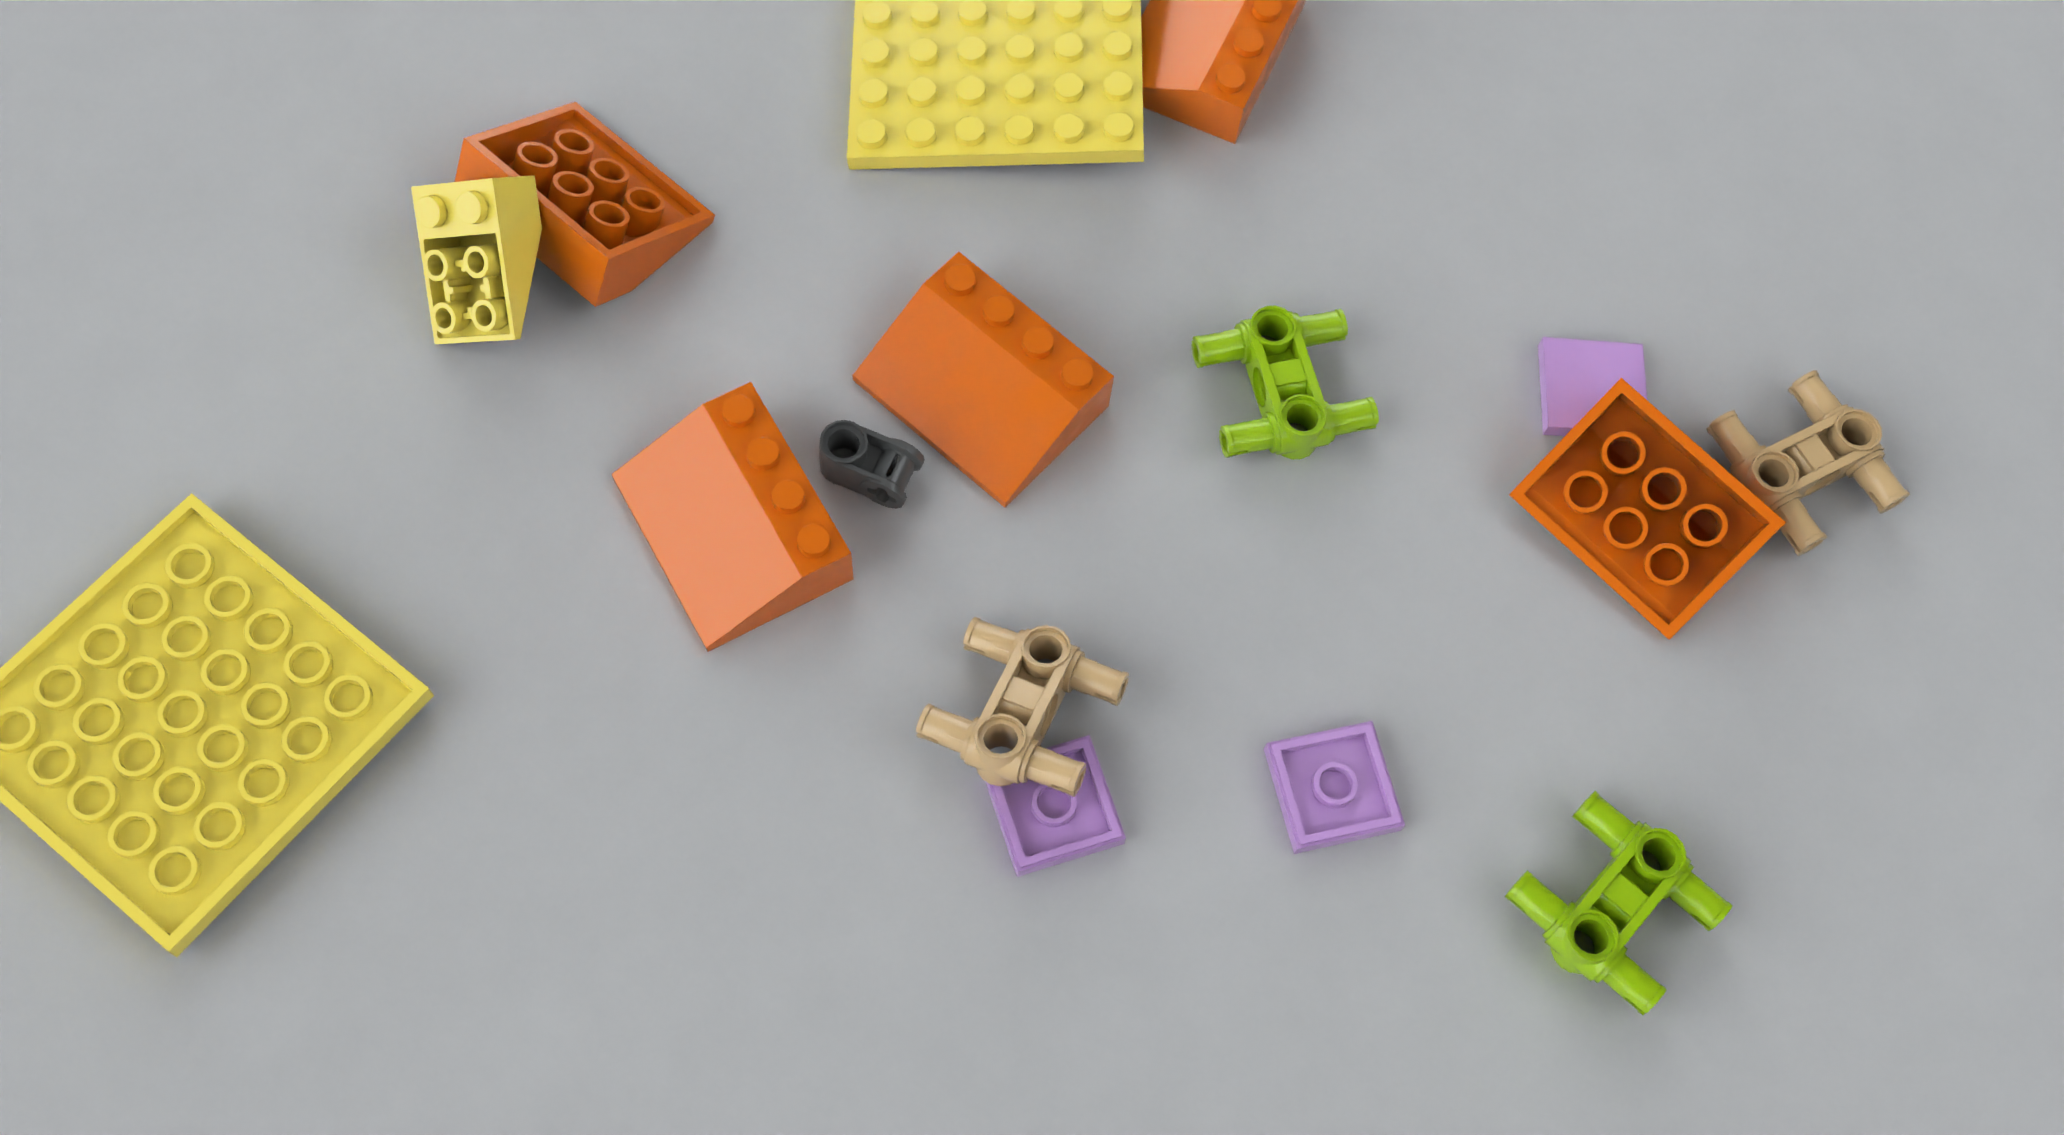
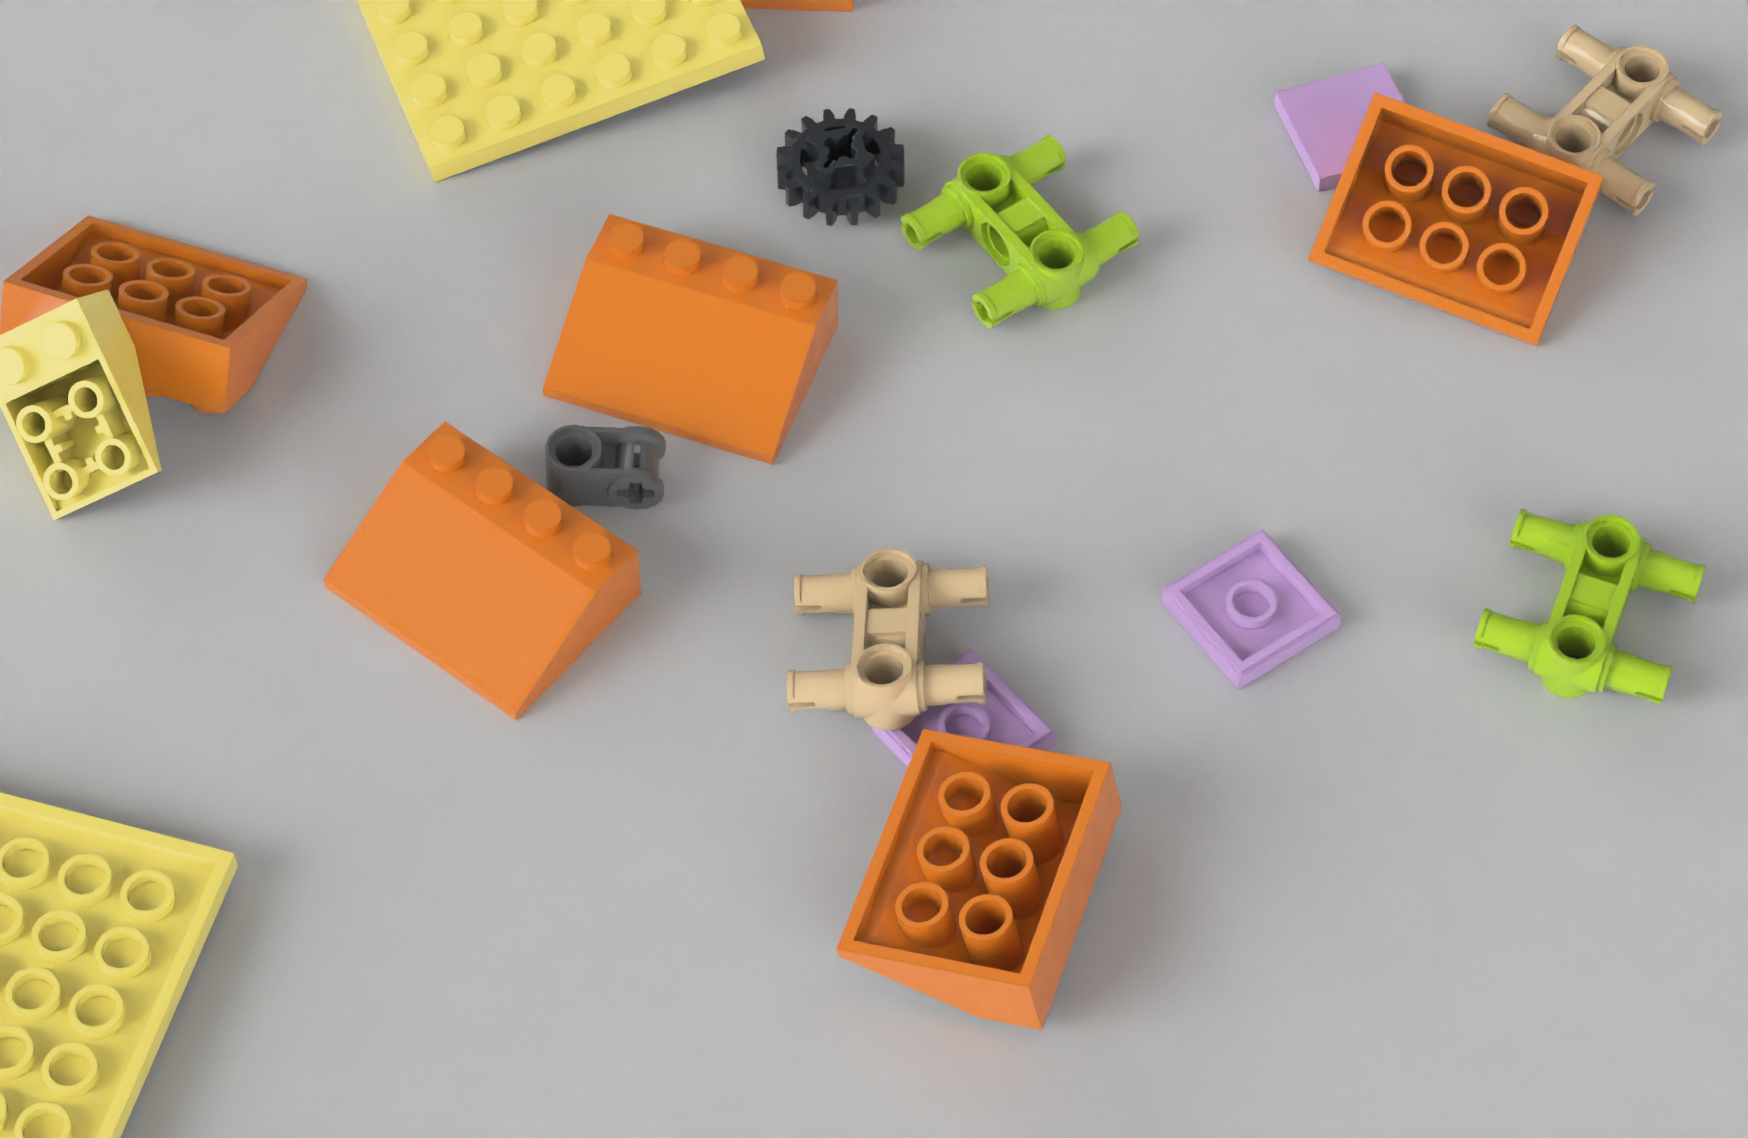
camera: 15 degrees left, 10 degrees down
(1007, 951) = (984, 874): none -> orange slope
(1164, 274) = (840, 167): none -> black gear

